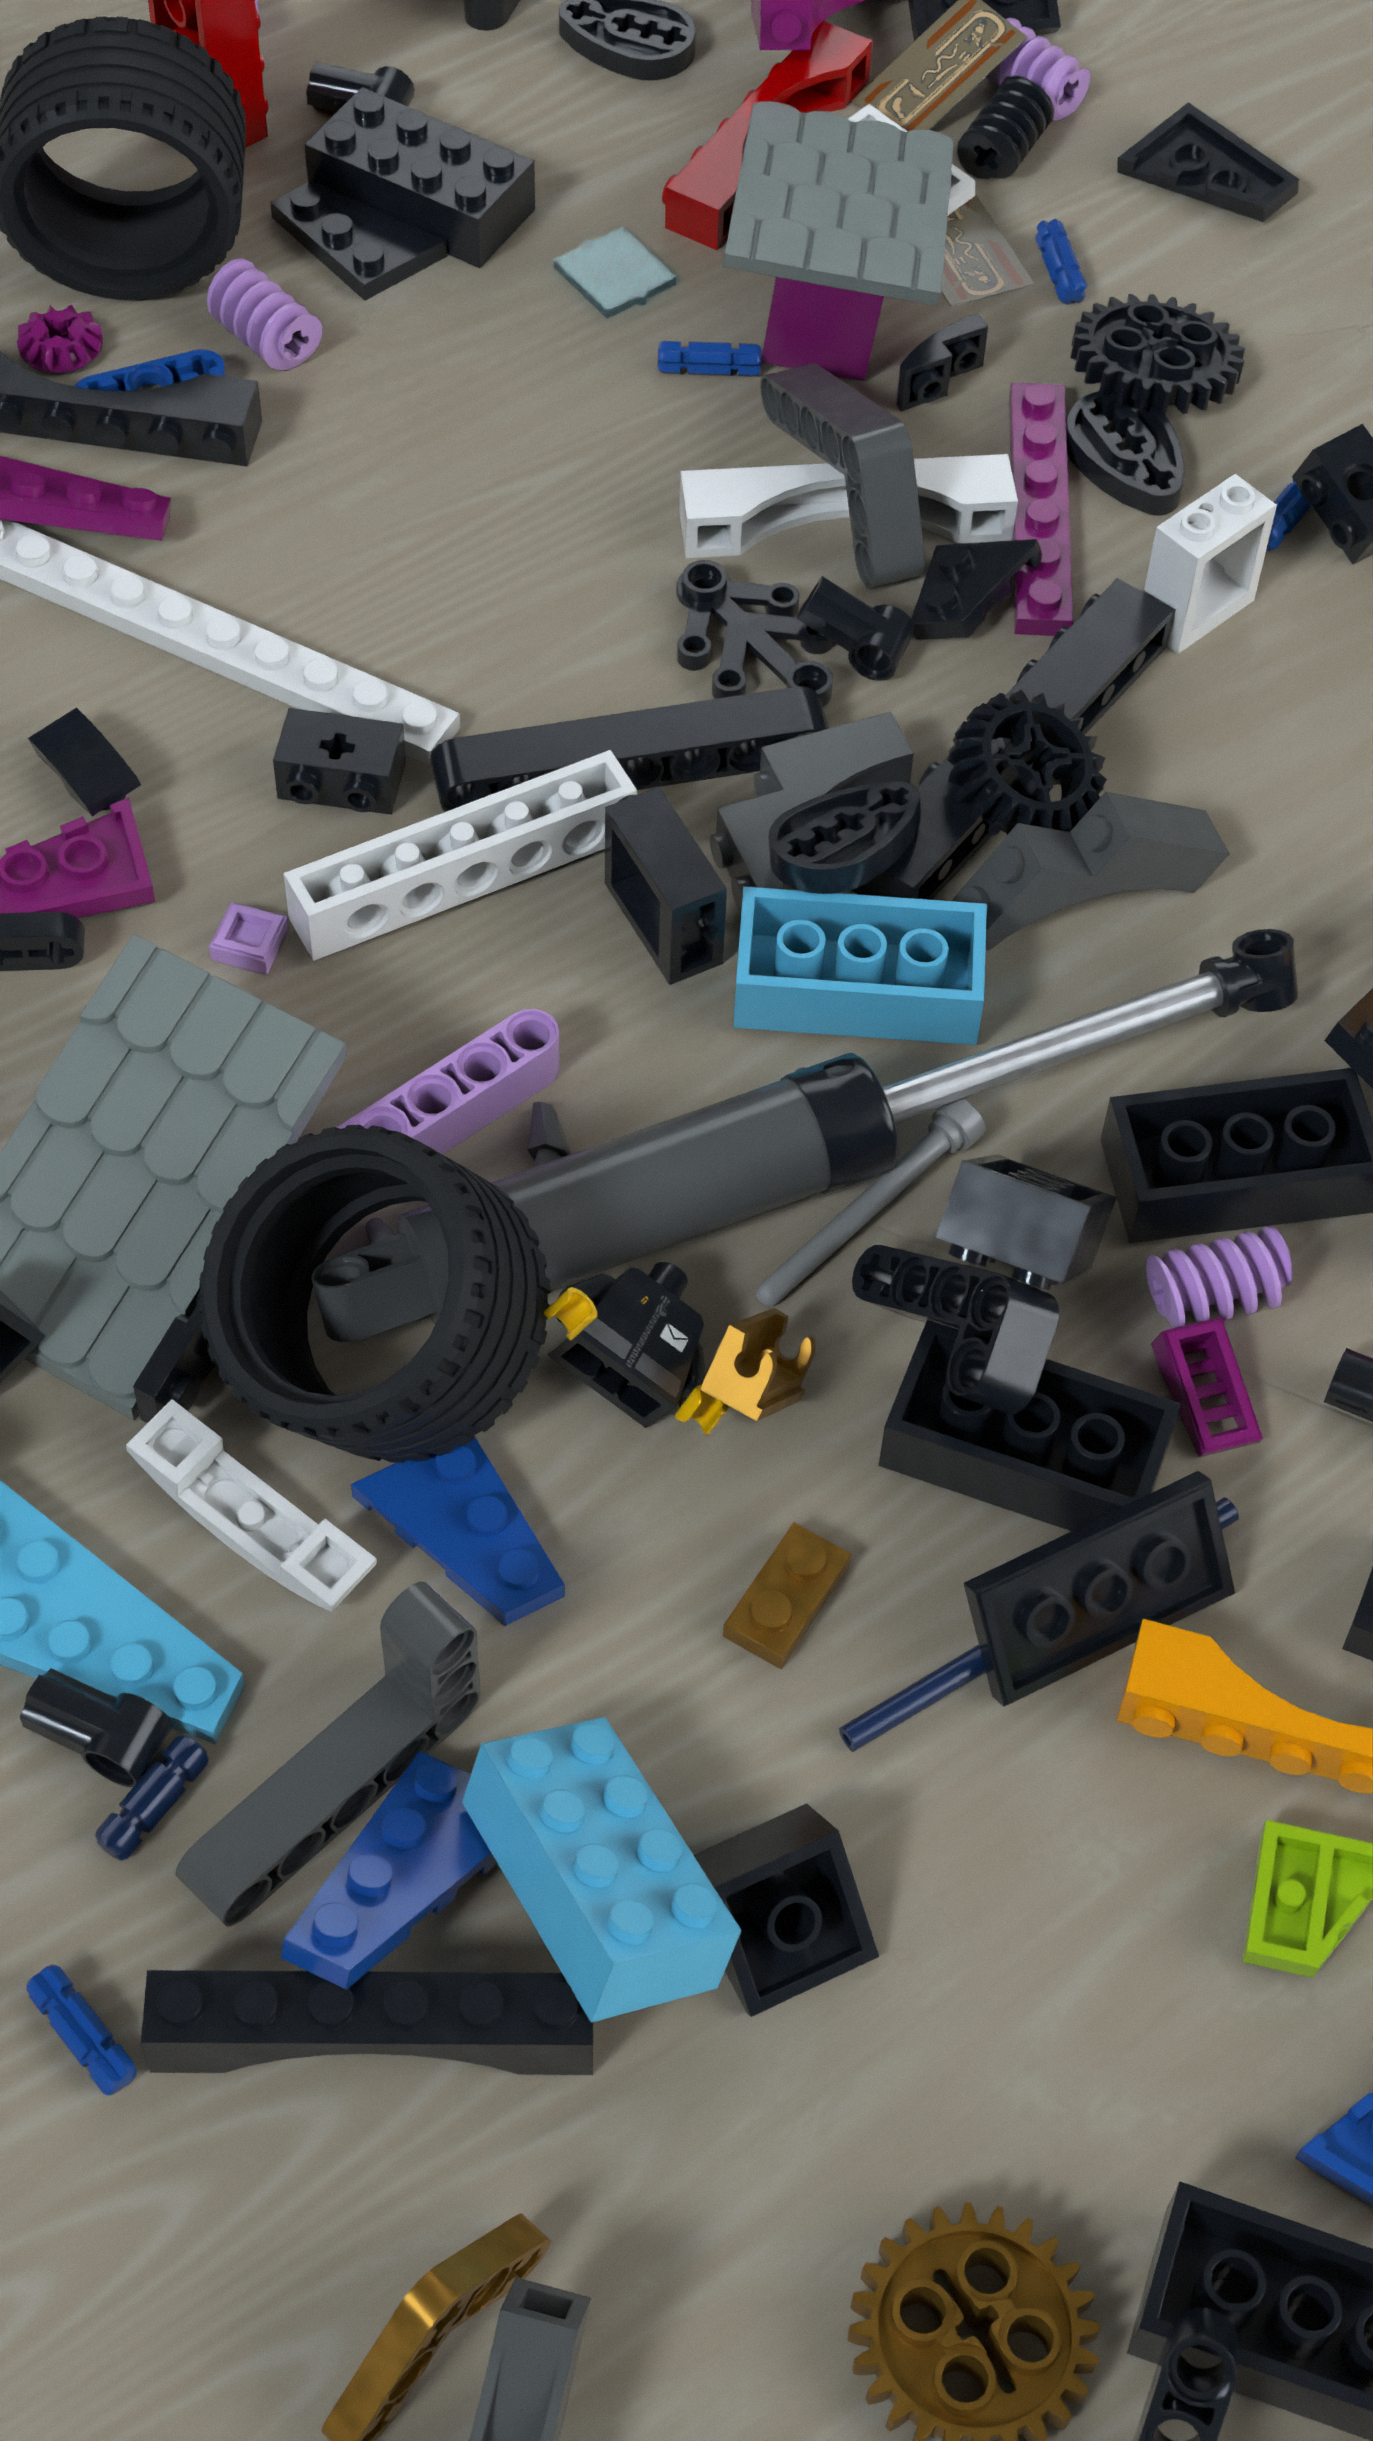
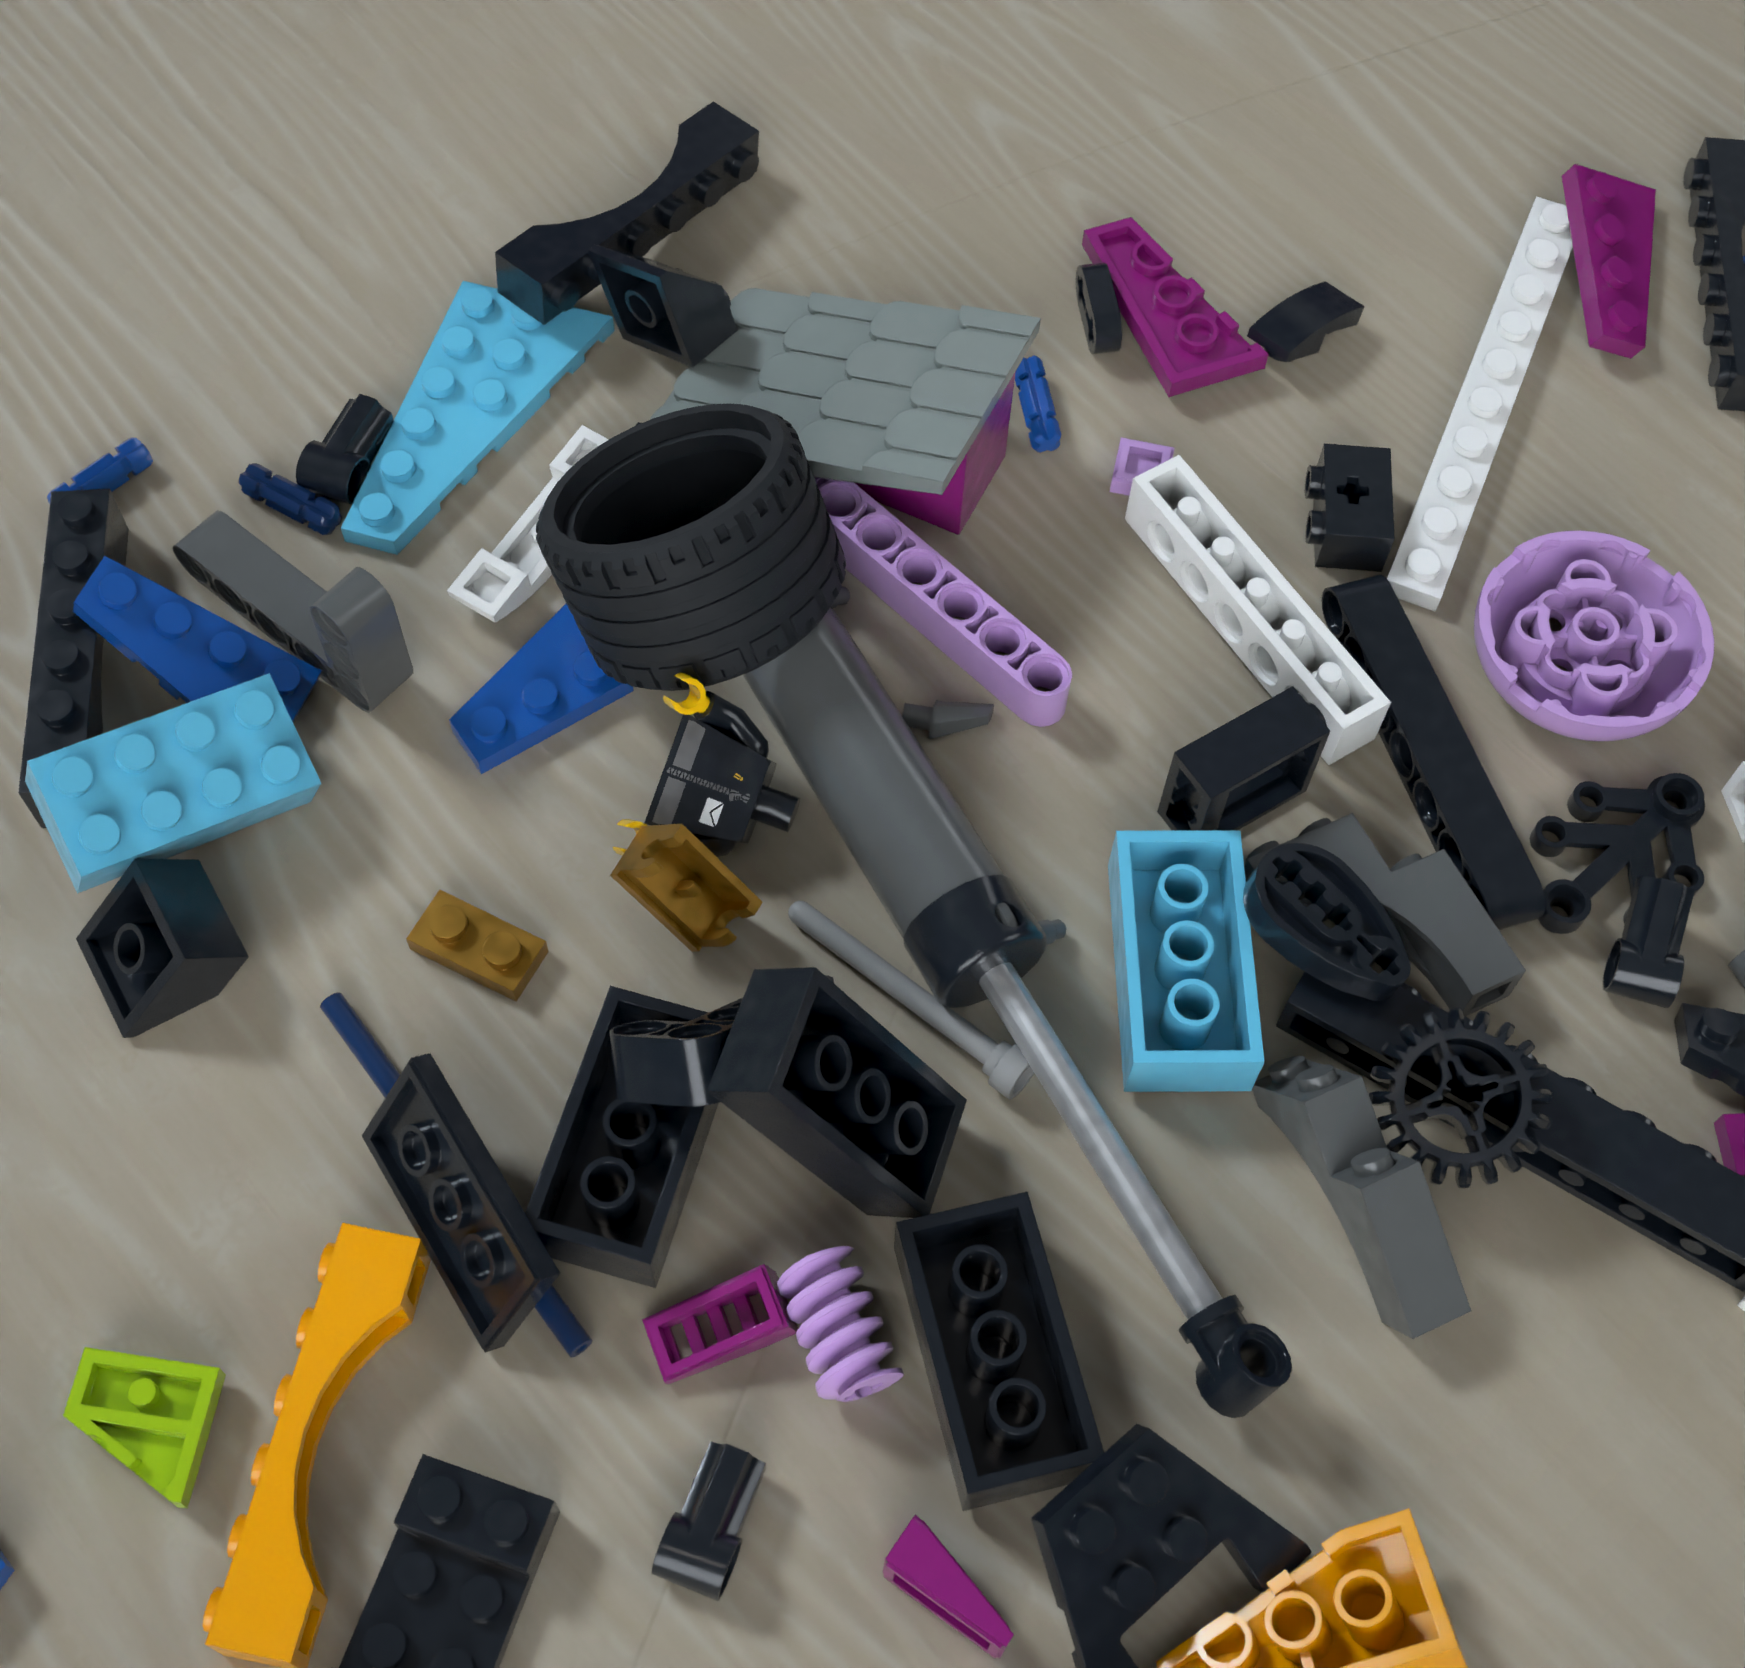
camera: 85 degrees right, 5 degrees up
(499, 607) = (1628, 637): none -> lavender brick

